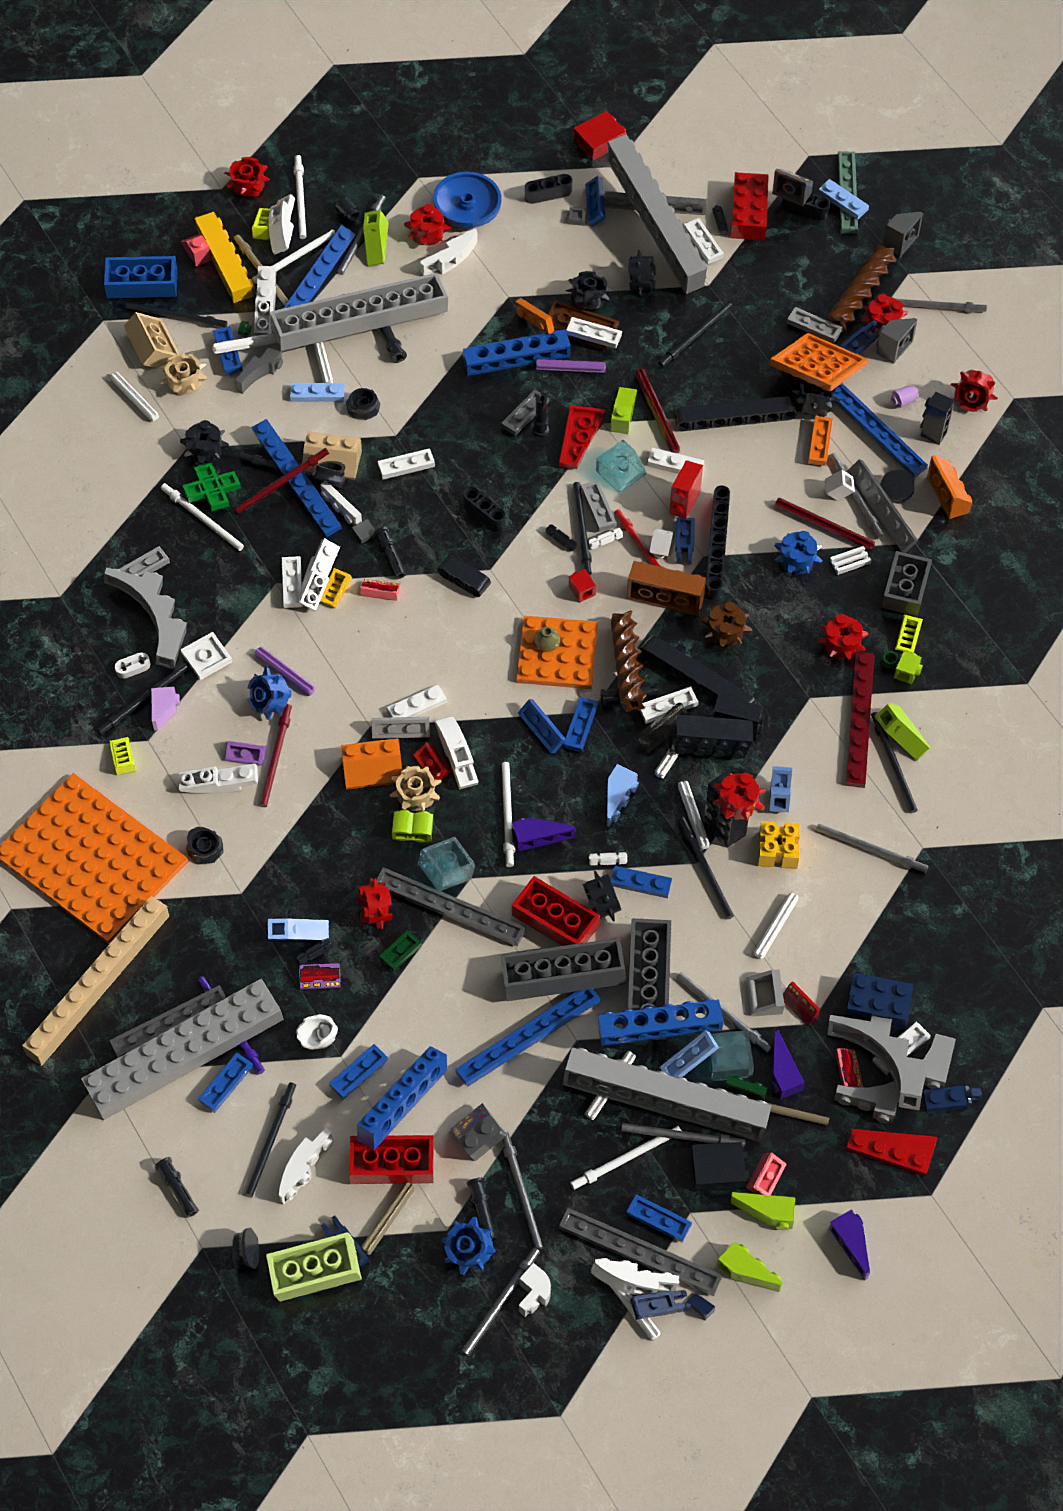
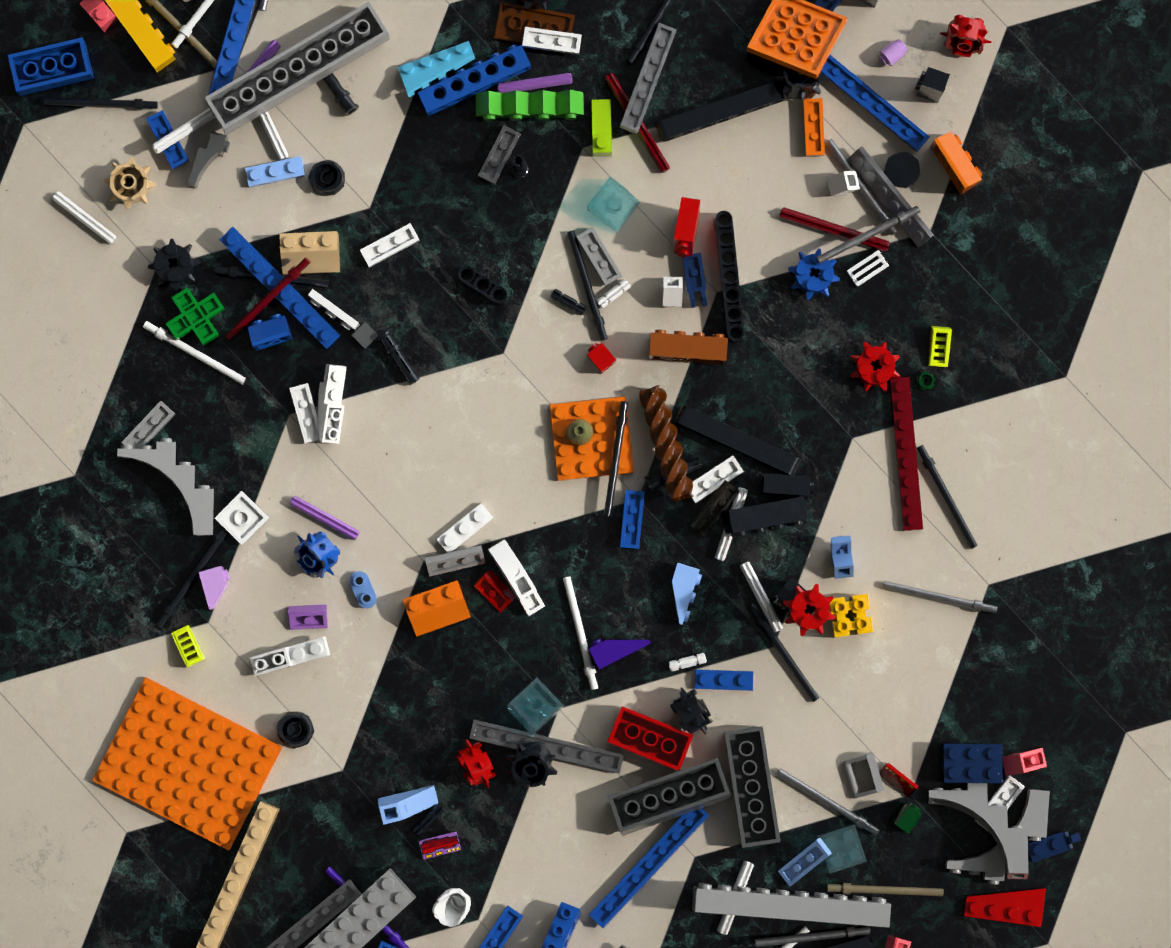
camera: 10 degrees left, 25 degrees up
(132, 665) = (173, 546): white beam -> none
(150, 340) = (84, 145): tan slope -> none
(244, 328) = (178, 107): dark green plate -> none
(265, 299) = (191, 69): white slope -> none
(276, 511) = (269, 332): none -> blue slope
(284, 722) = (338, 577): dark red bar -> none
(303, 737) = (363, 589): none -> medium blue plate
(330, 471) = (315, 279): black hat -> none
(343, 586) = (349, 393): yellow slope -> none
(379, 589) = (397, 401): coral slope -> none
(400, 951) = (510, 802): dark green plate -> none
(412, 826) = (491, 668): lime brick -> none
(415, 788) = (474, 627): tan brick -> none
(419, 913) = (531, 764): none -> black brick
(464, 576) = (479, 370): black beam -> none
(484, 335) = (424, 70): none -> medium azure wing
(534, 316) = (484, 34): orange plate -> none
(541, 726) = (594, 530): blue plate -> none
(555, 378) = (529, 105): none -> bright green brick
(579, 432) = (561, 166): red wing -> none
(588, 637) = (621, 421): none -> black bar
(627, 525) = (631, 272): red bar -> none
(653, 1030) = (821, 827): blue brick -> none
(669, 461) = (668, 184): white plate -> none
(674, 376) = (648, 78): none -> flat silver plate
(726, 624) = (755, 386): reddish brown brick -> none
(751, 1090) = (854, 876): dark green plate -> none
(776, 925) = (861, 700): white axle -> none
(785, 1074) = (894, 853): dark purple slope -> none
(802, 1036) = (907, 817): none -> dark green brick
(848, 1068) = (954, 836): slope -> none
(889, 517) = (901, 218): none -> flat silver bar
(902, 730) = (948, 461): lime slope -> none
(906, 583) = (929, 290): dark grey brick -> none
(908, 667) = (946, 386): lime brick -> none
(932, 1010) = (1024, 762): none -> coral slope

